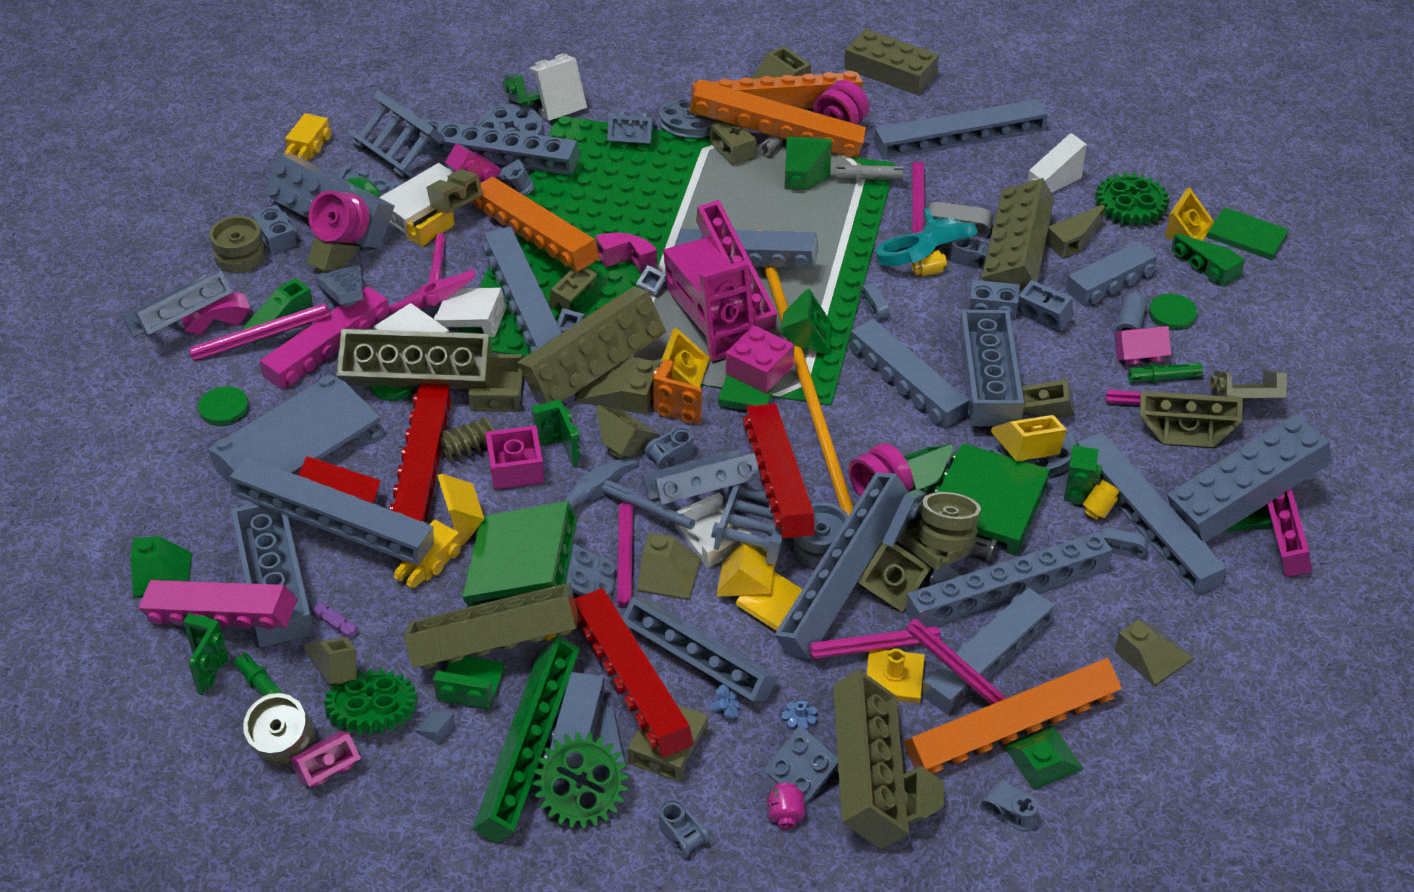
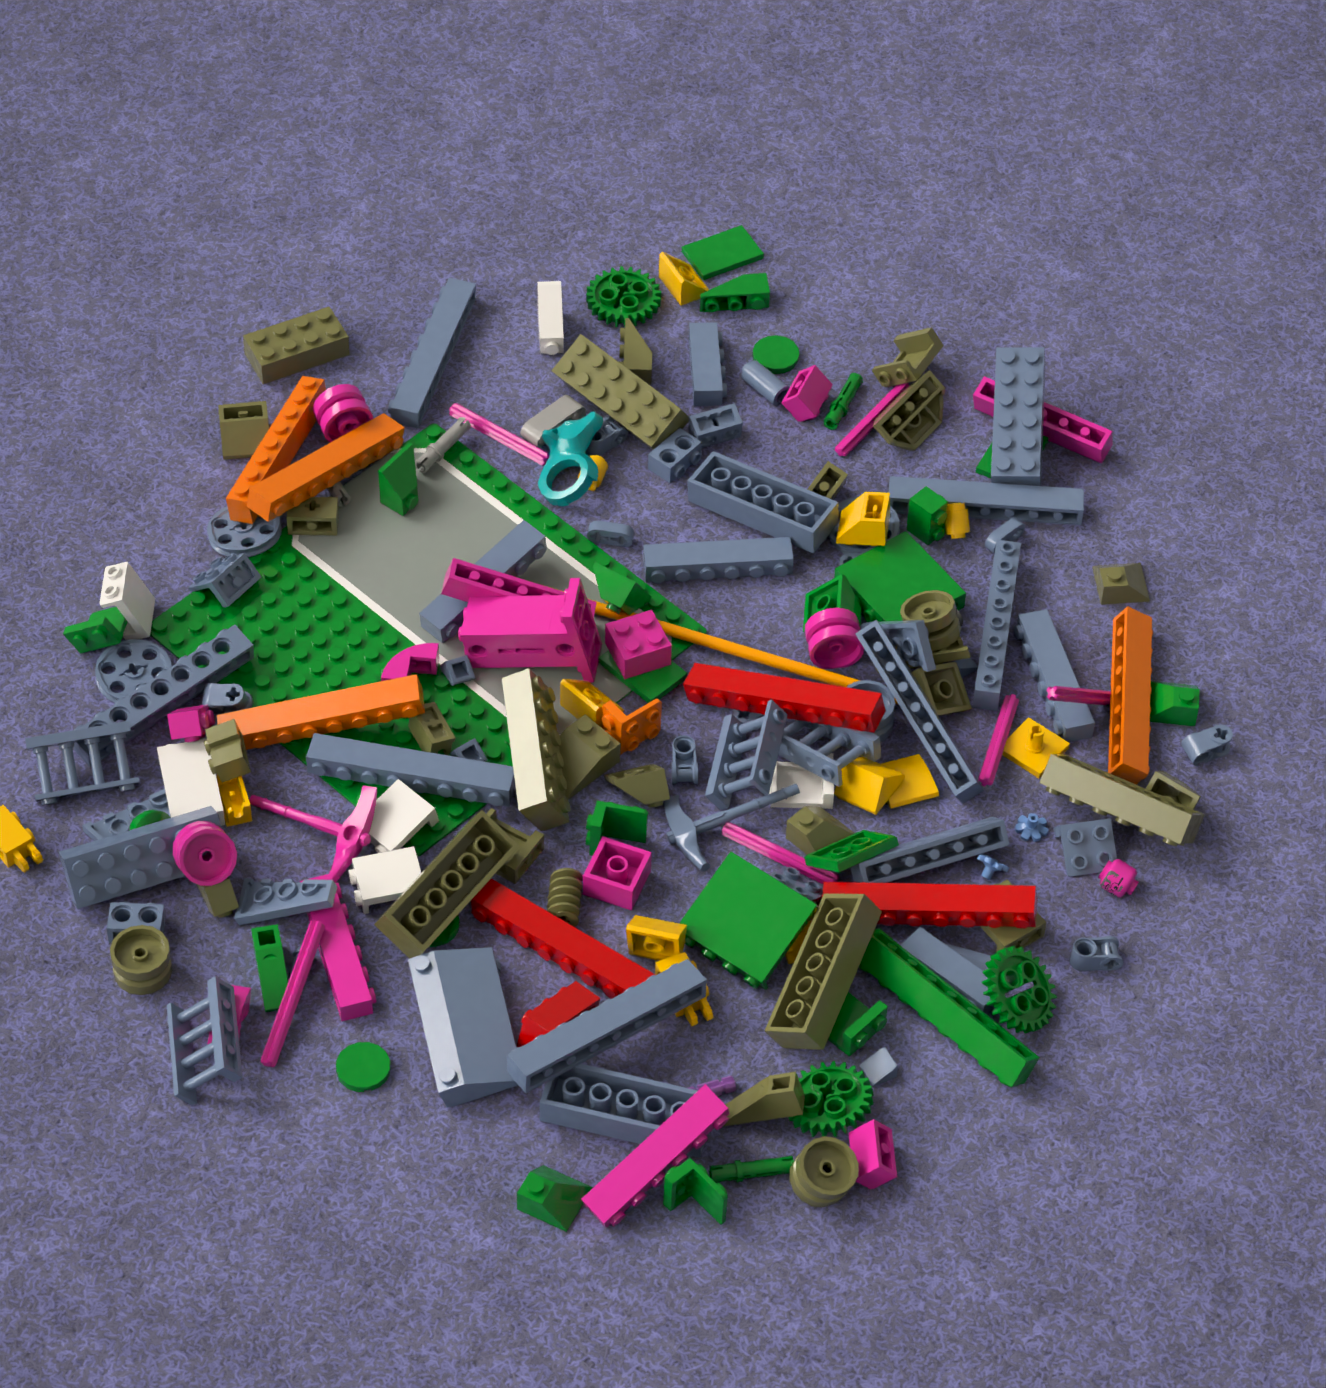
camera: 60 degrees left, 5 degrees up
(652, 591) = (851, 850): none -> green tile

